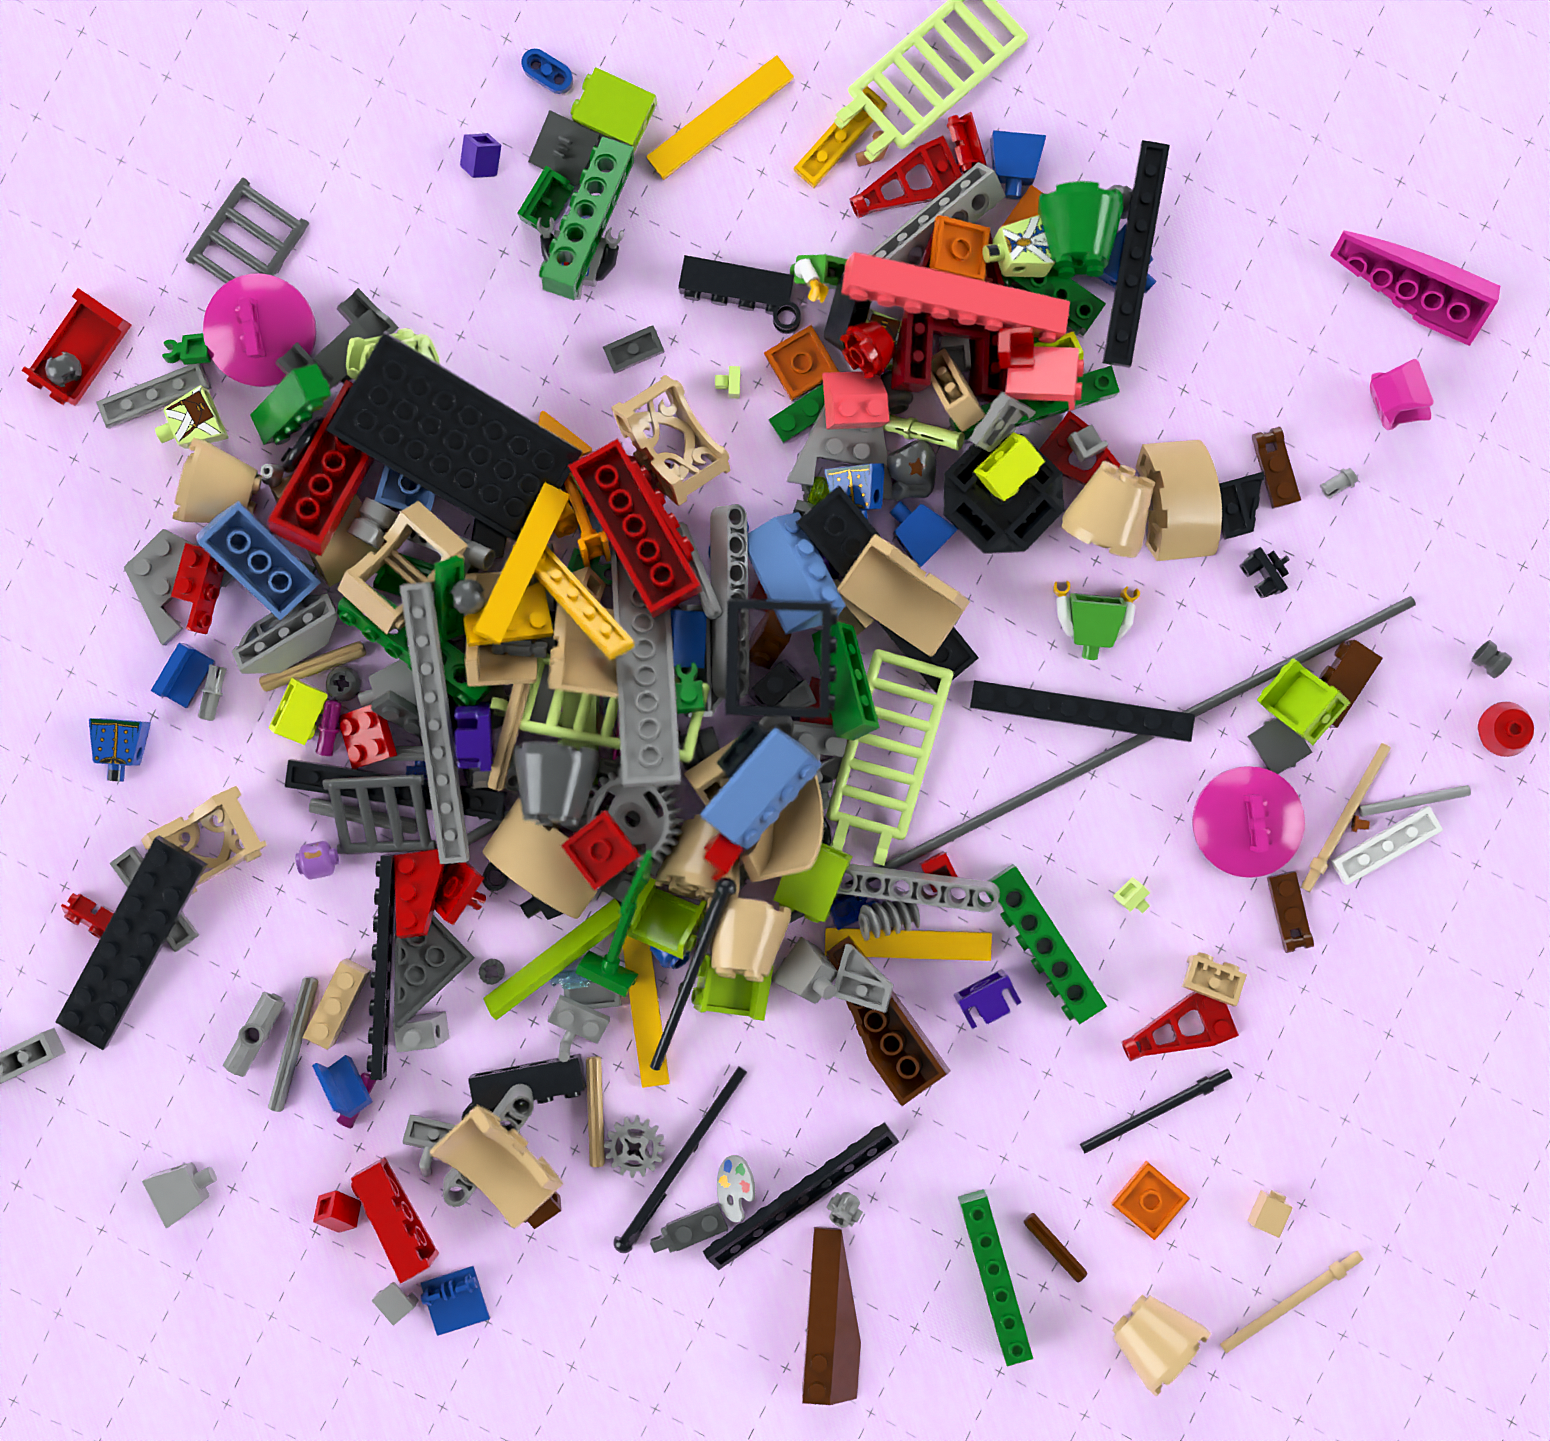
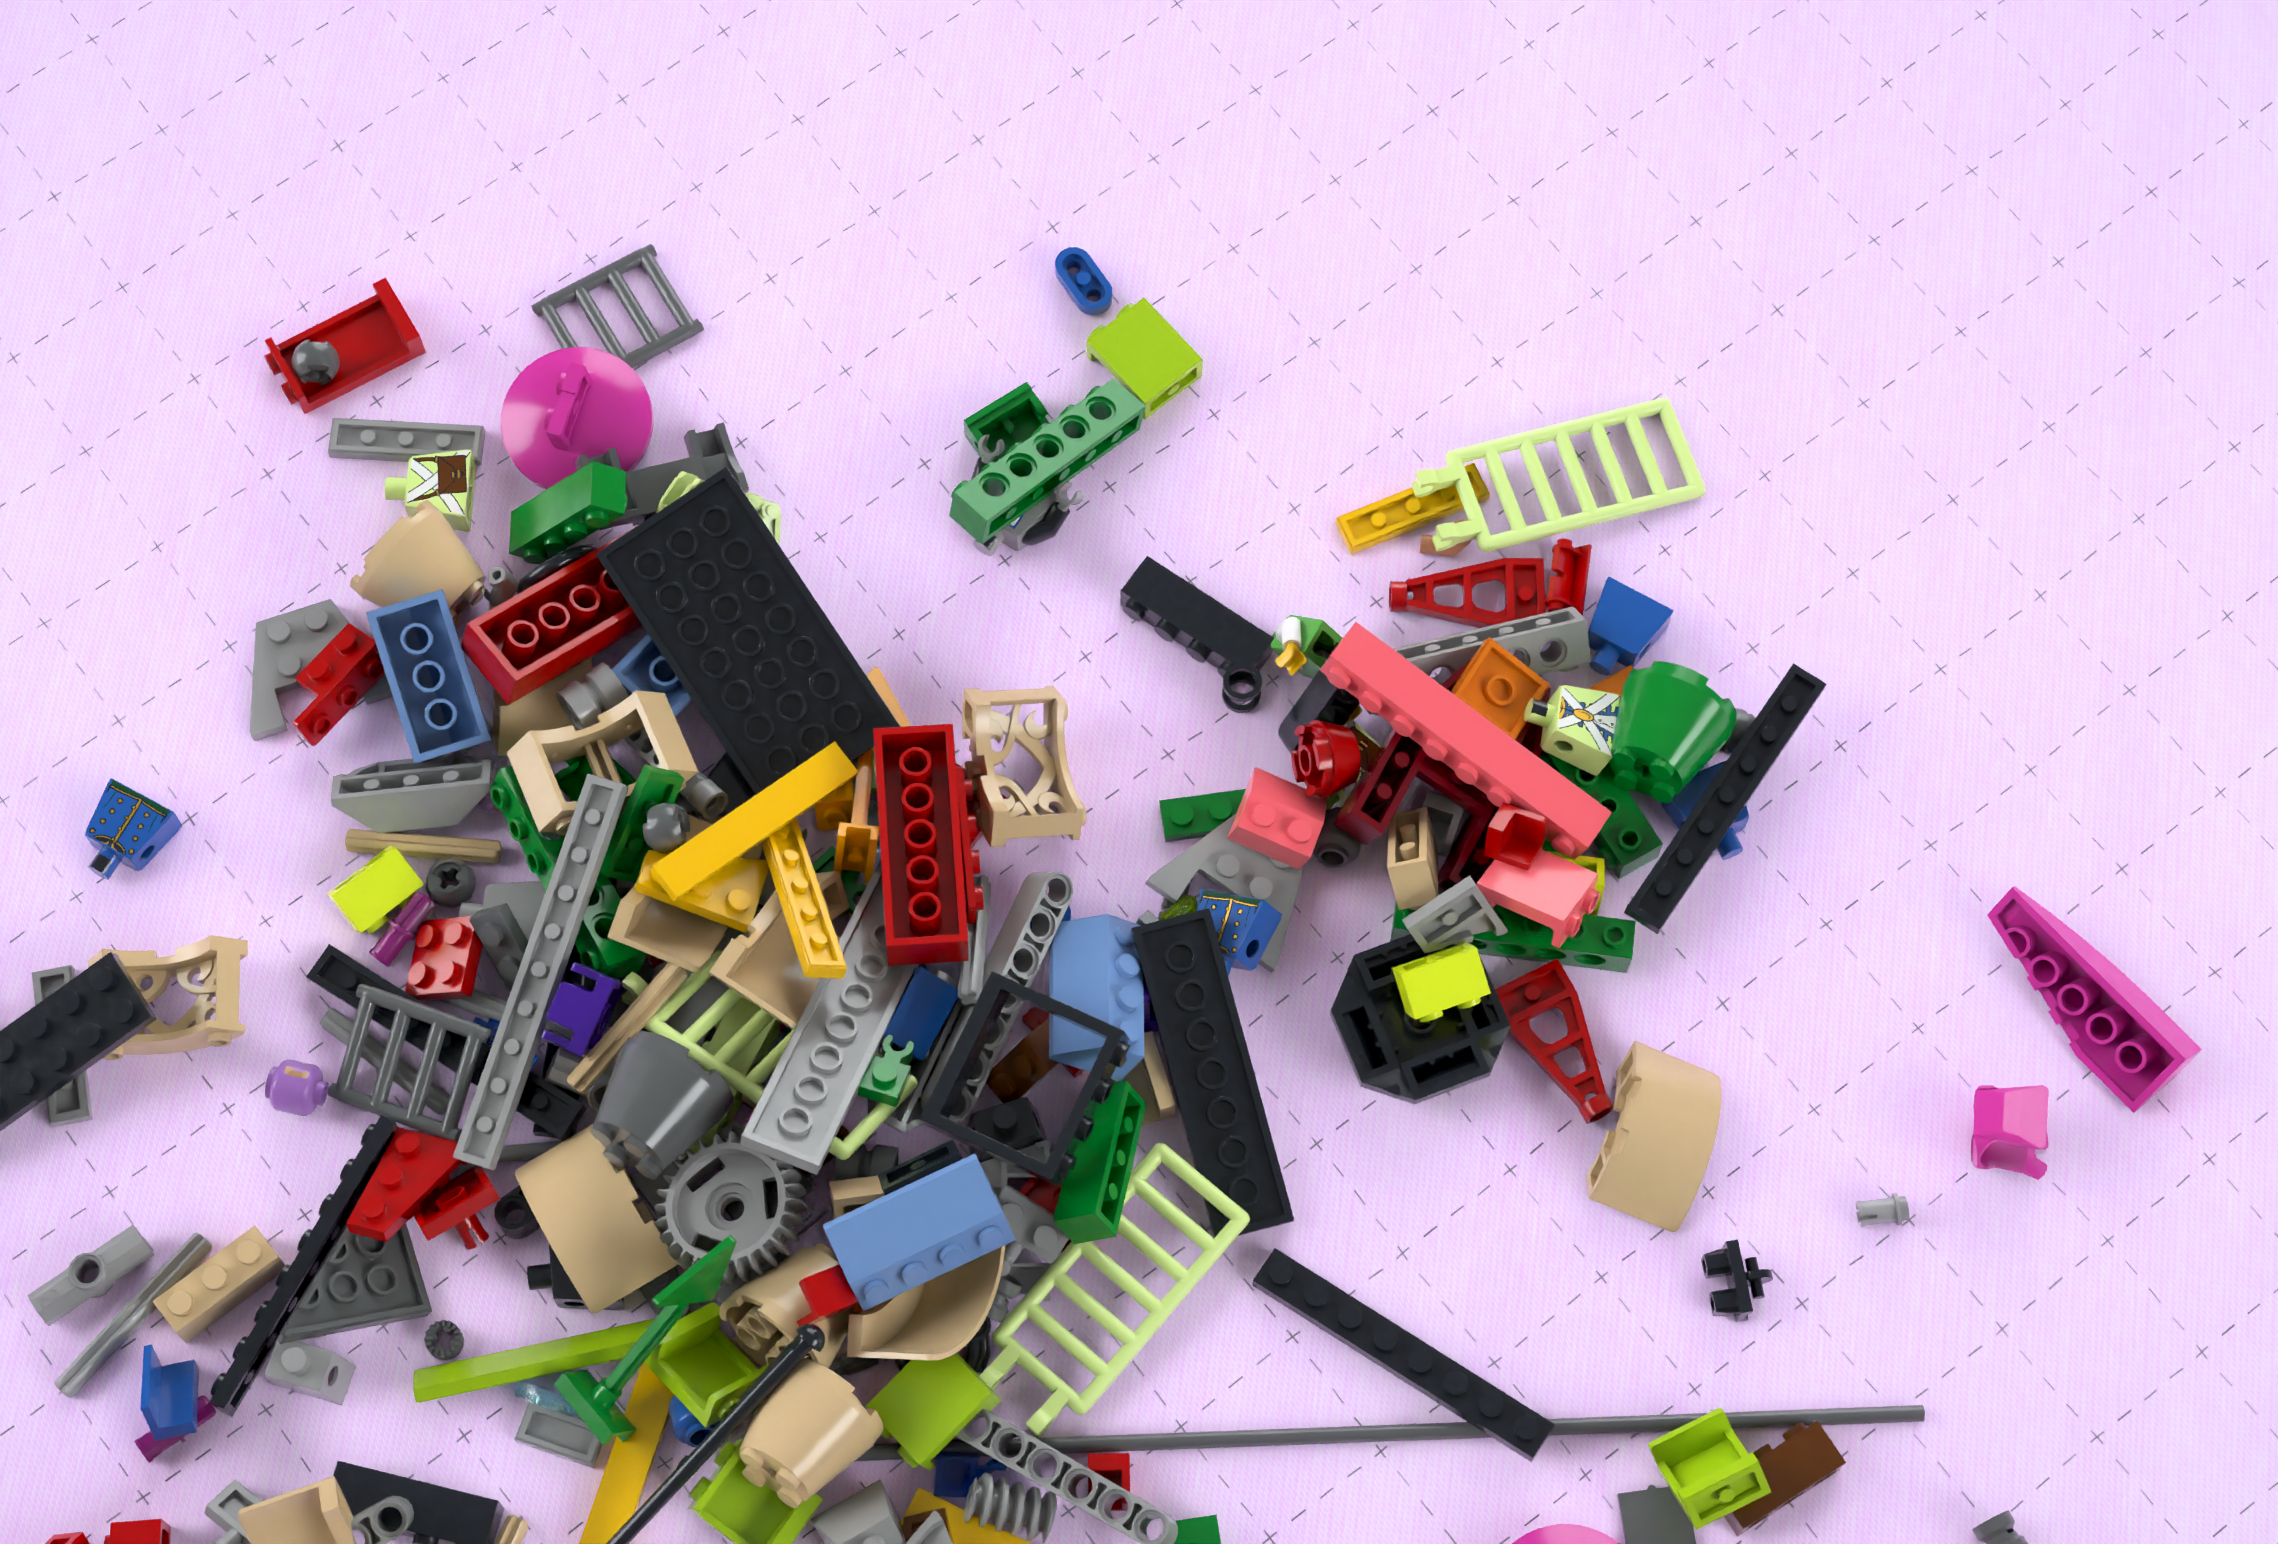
camera: 25 degrees right, 20 degrees down
(182, 675) = (255, 783): blue panel -> none
(190, 351) = (478, 409): green plate -> none
(211, 693) = (279, 821): light grey axle -> none
(480, 155) = (953, 340): dark purple panel -> none
(522, 648) = (697, 927): dark grey axle -> none
(563, 147) = (1060, 372): dark grey piece -> none
(576, 1020) = (523, 1456): light grey plate -> none
(600, 850) = (669, 1222): red plate -> none
(633, 349) = (1028, 643): dark grey plate -> none
(720, 117) = (1271, 422): yellow tile -> none
(730, 382) = (1132, 734): yellowish green tile -> none
(800, 362) = (1231, 748): orange tile -> none
(901, 597) = (1224, 1081): tan panel -> none
(911, 428) = (1340, 890): yellowish green pin -> none
(913, 470) = (1317, 942): dark grey piece -> none
(920, 532) = (1292, 1026): blue torso -> none
(1086, 443) = (1560, 1006): light grey panel -> none
(1095, 619) = (1473, 1237): bright green torso -> none
(1111, 510) = (1554, 1096): tan cone -> none
(1239, 504) = (1734, 1178): black wing -> none
(1277, 468) = (1805, 1157): reddish brown plate -> none

